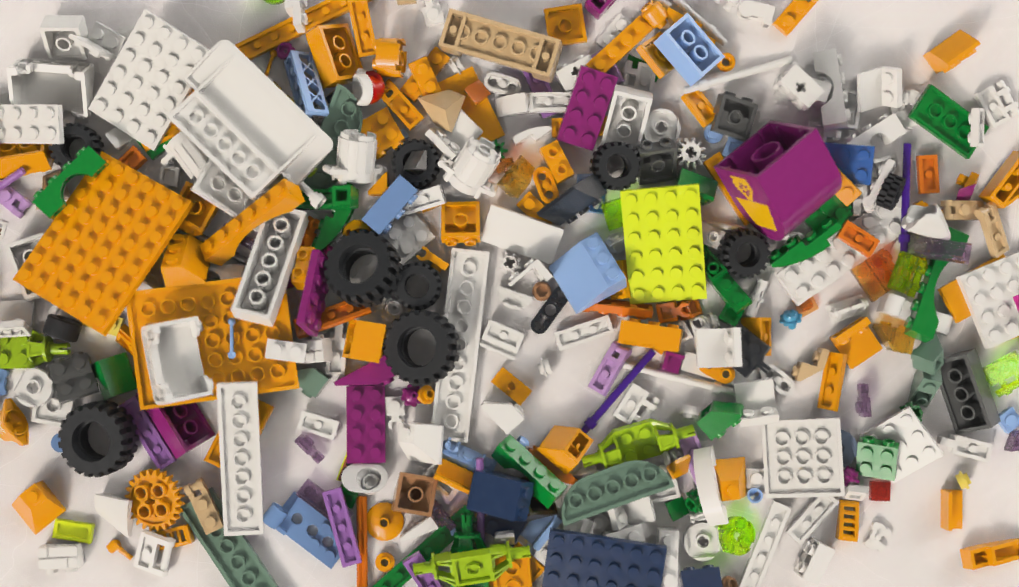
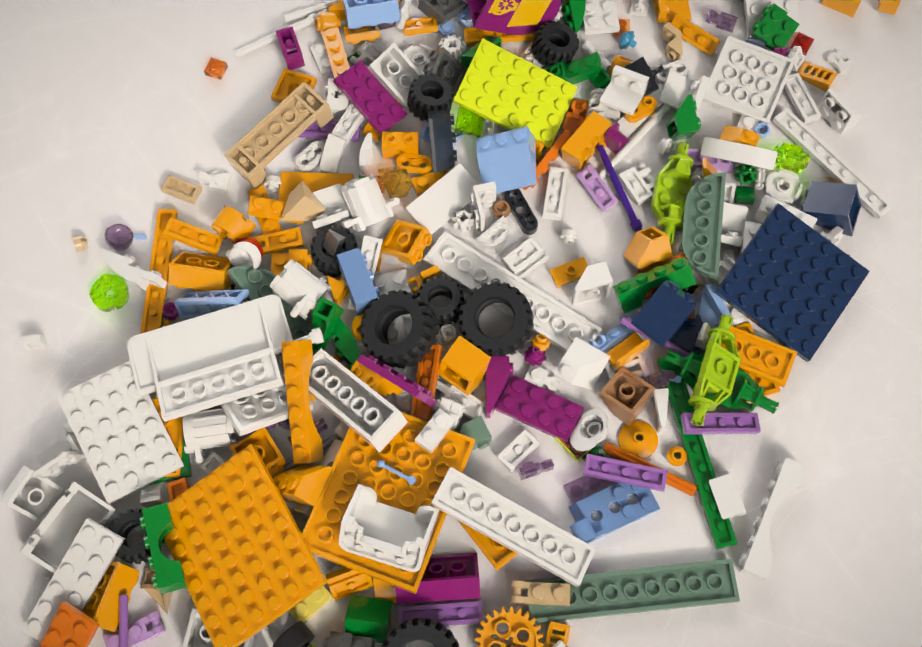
camera: 55 degrees left, 20 degrees down
(477, 92) = (306, 175): orange slope -> none

